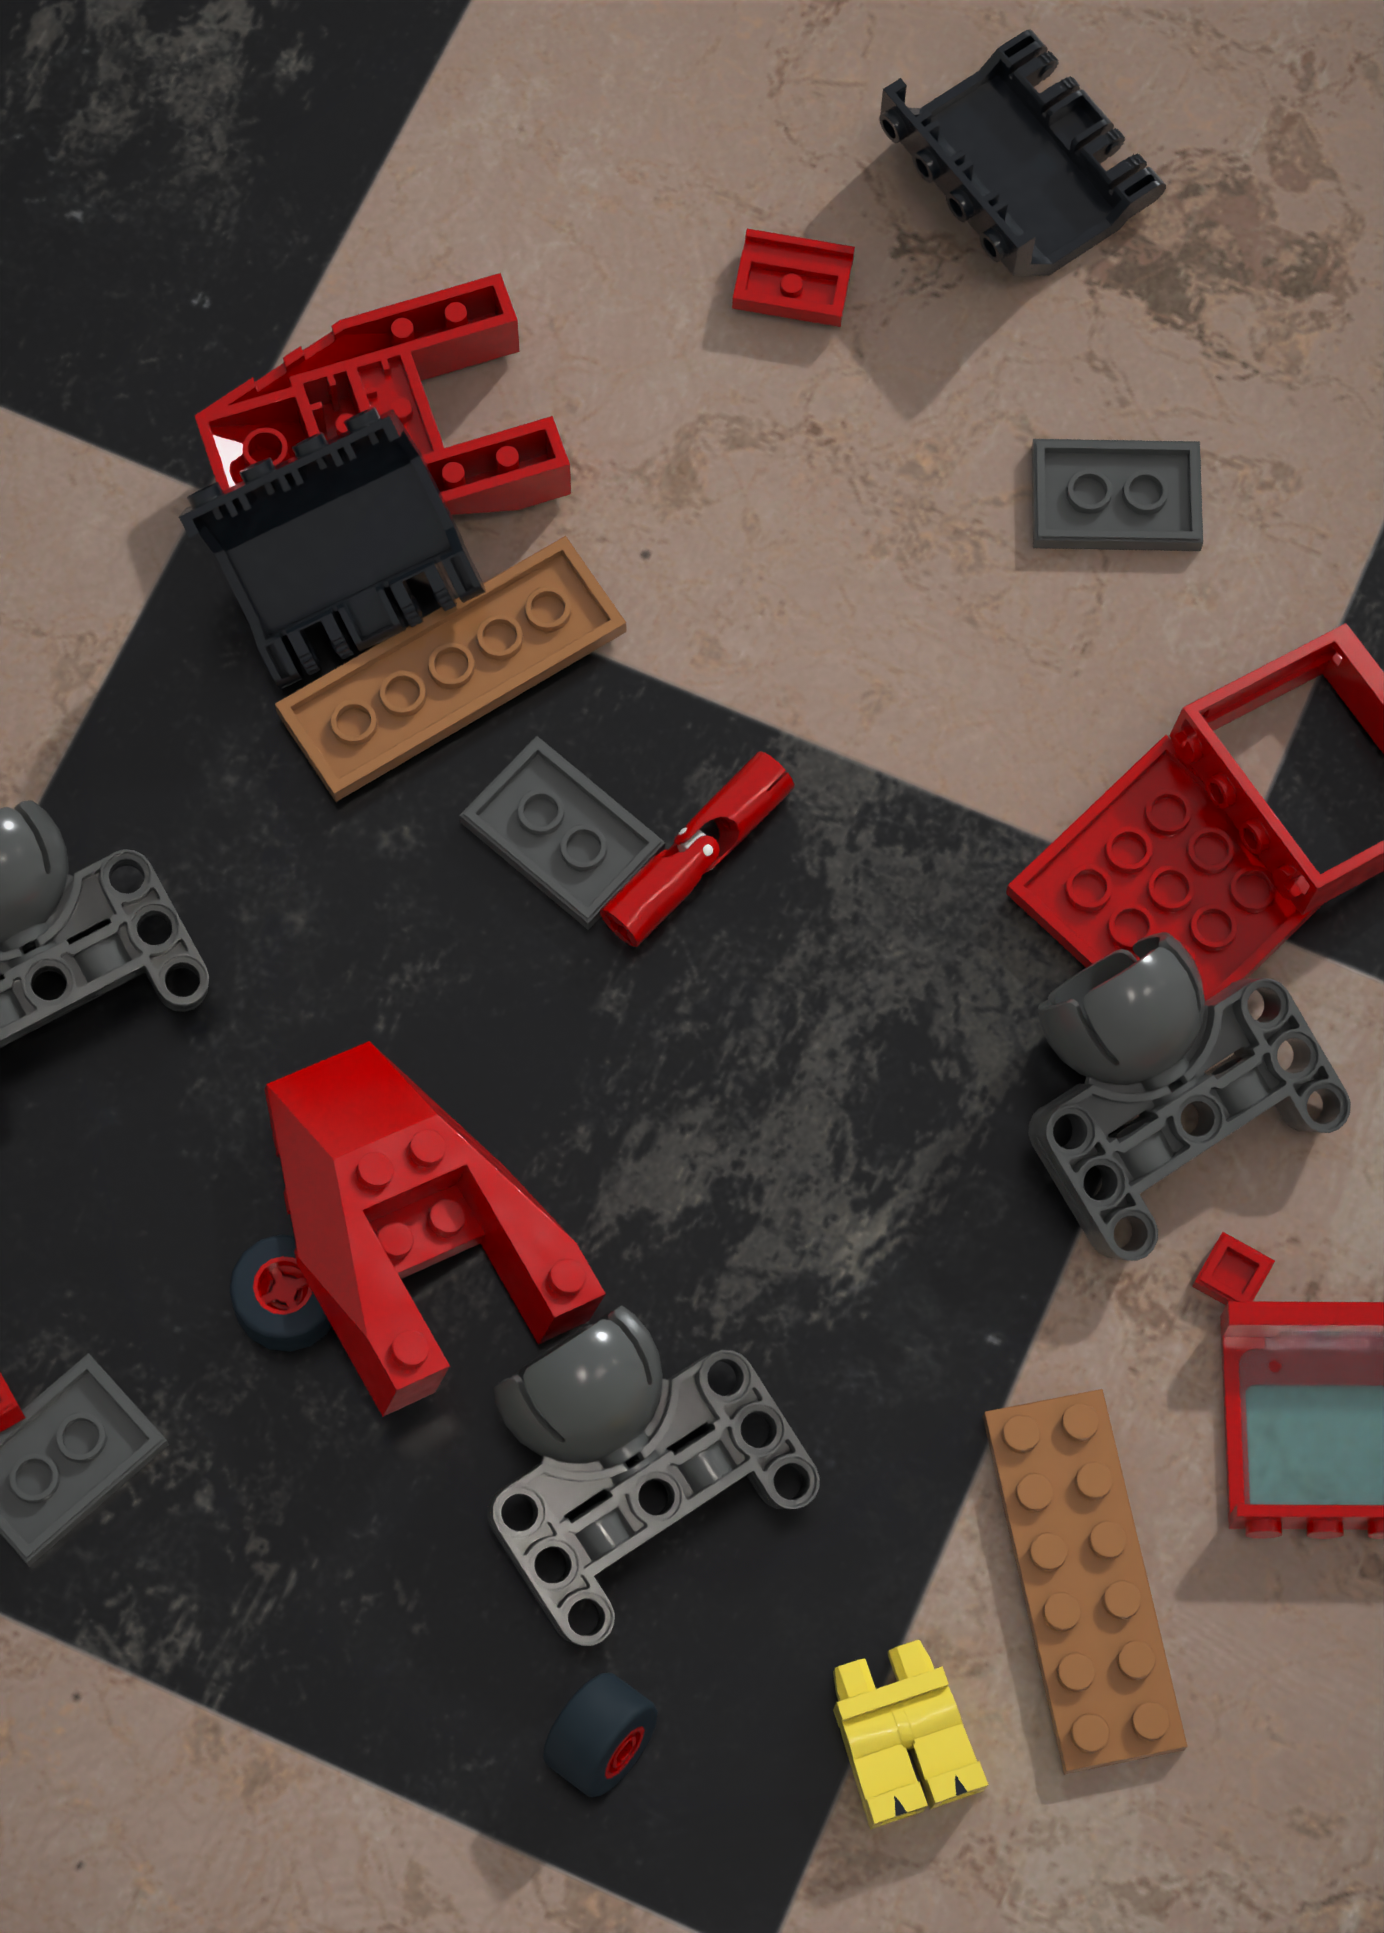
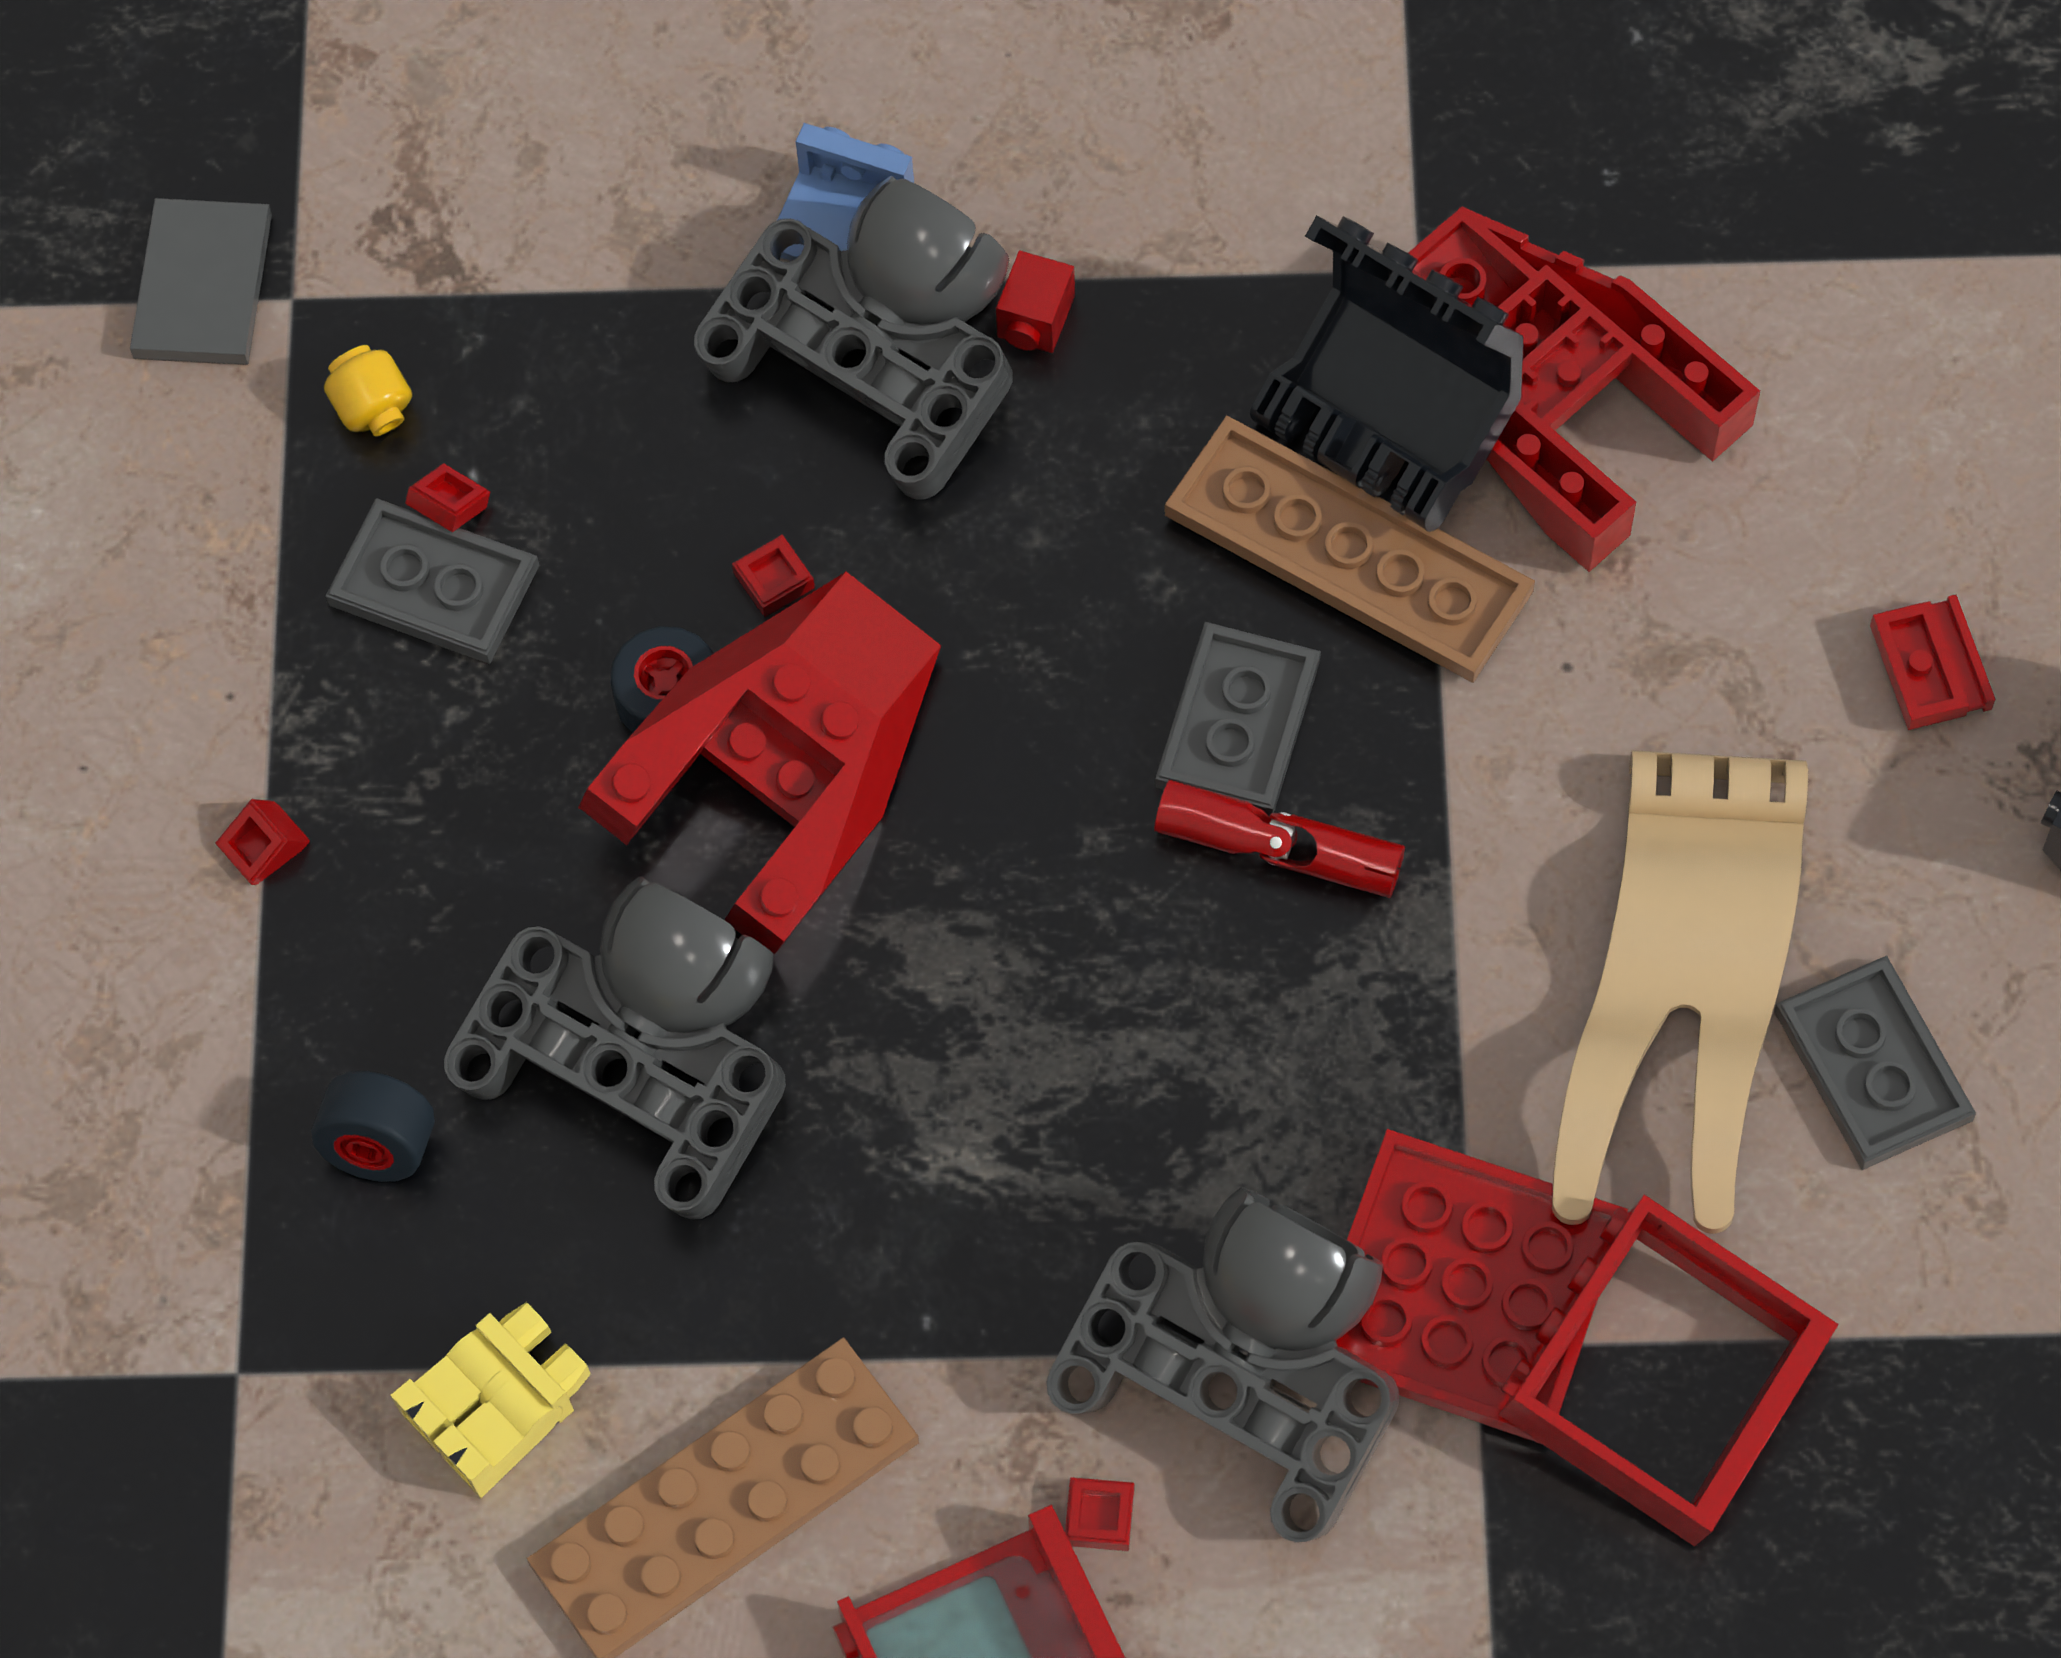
camera: 70 degrees right, 5 degrees down
(76, 807) = (1035, 302): none -> red brick
(216, 1155) = (773, 575): none -> red tile
(246, 1726) = (261, 840): none -> red slope
(953, 565) = (1693, 928): none -> tan flag

